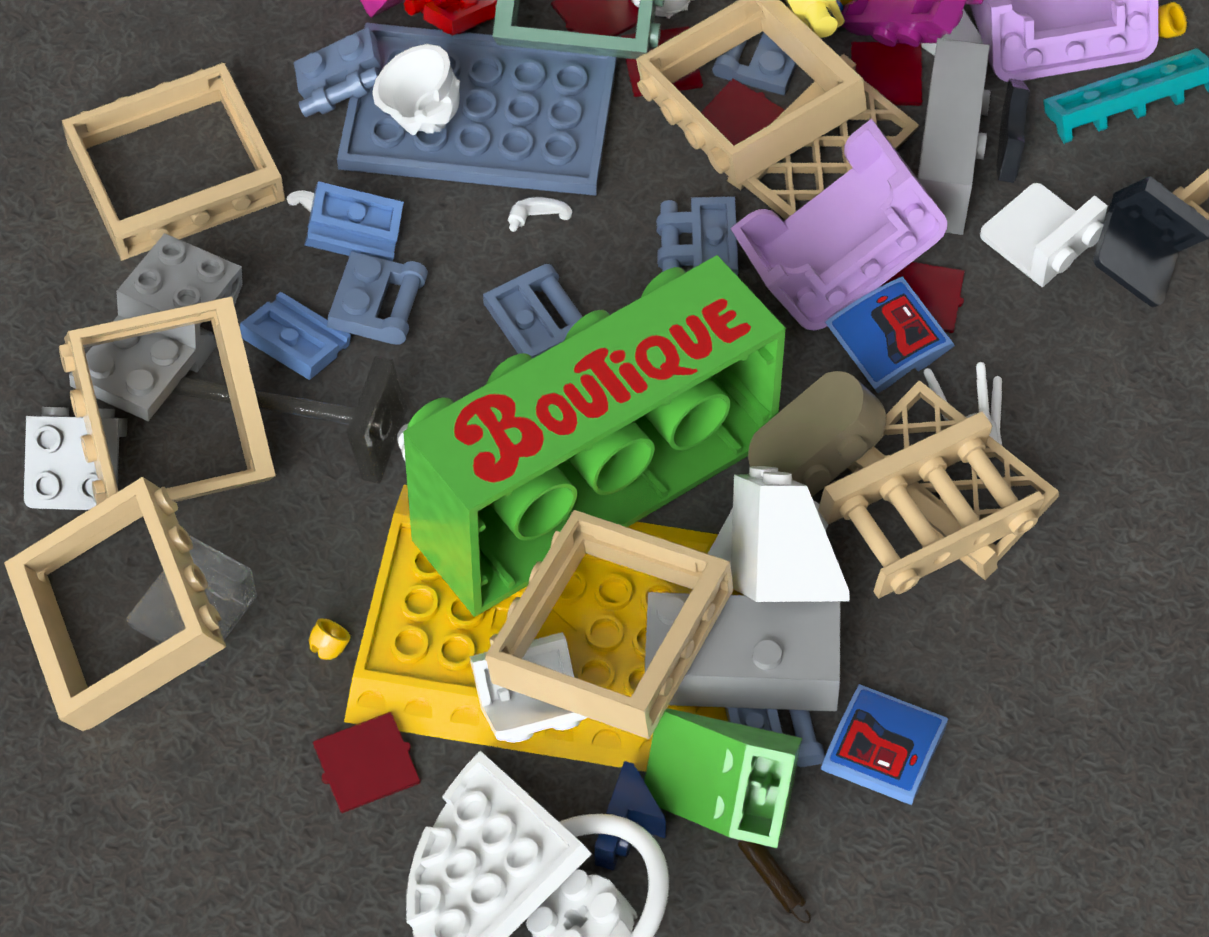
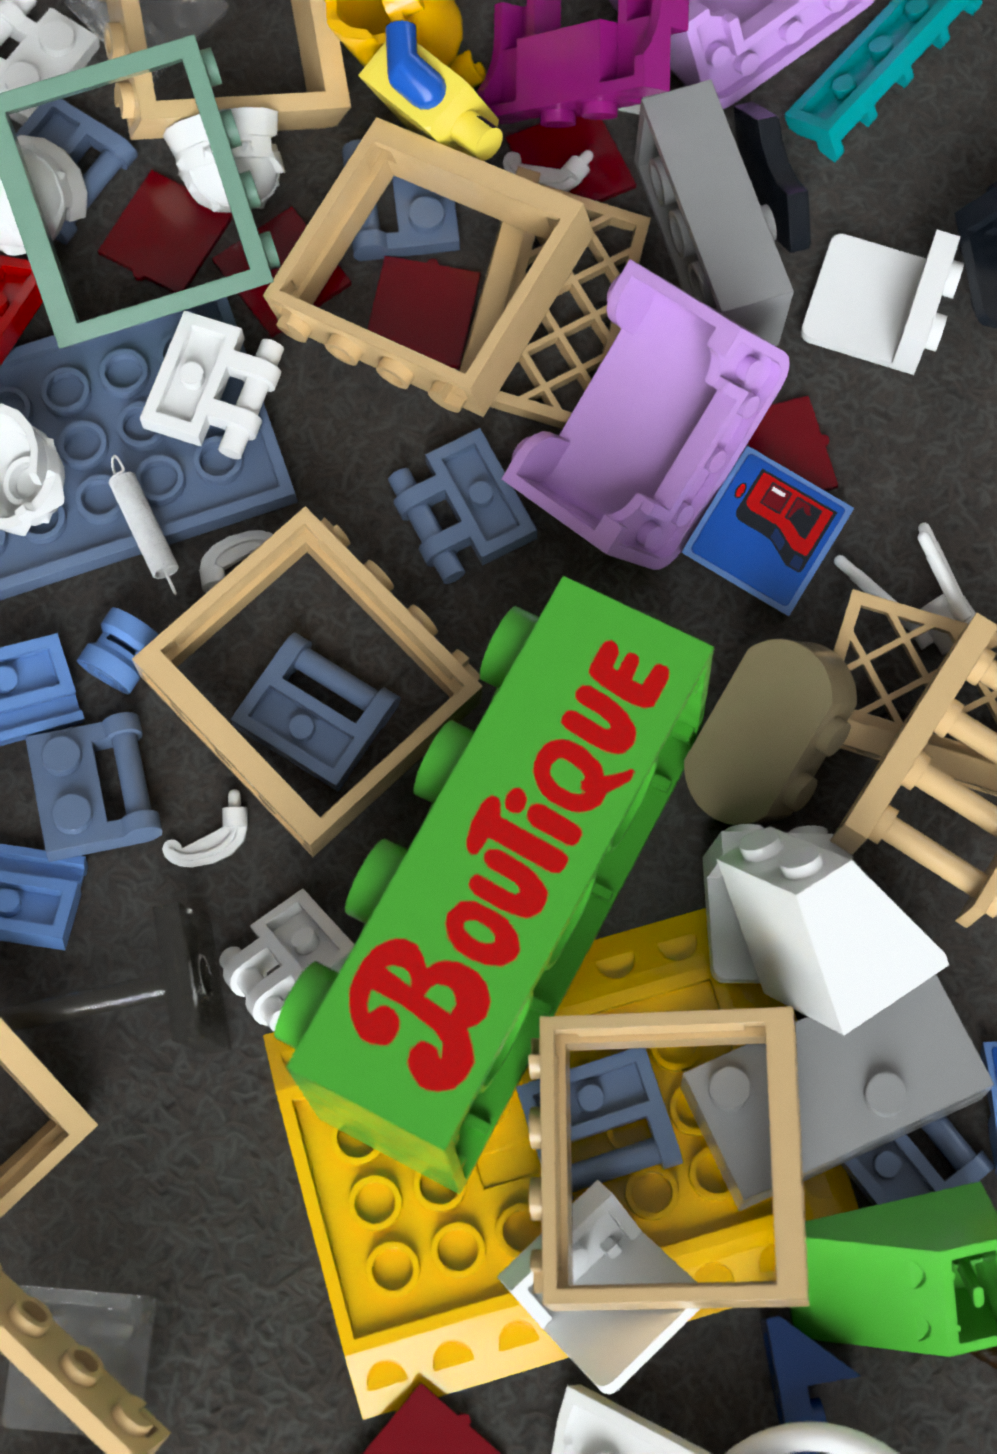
camera: 25 degrees left, 15 degrees up
(328, 639) = (288, 1301): yellow hinge -> none
(435, 365) = (217, 844): none -> white piece
(437, 229) = (112, 653): none -> medium blue wheel
(490, 161) = (143, 524): none -> white piece
(519, 220) = (372, 591): none -> tan window
(568, 91) = (195, 376): none -> white plate
(597, 600) = (607, 1097): none -> sand blue plate
(875, 79) = (563, 179): none -> white piece

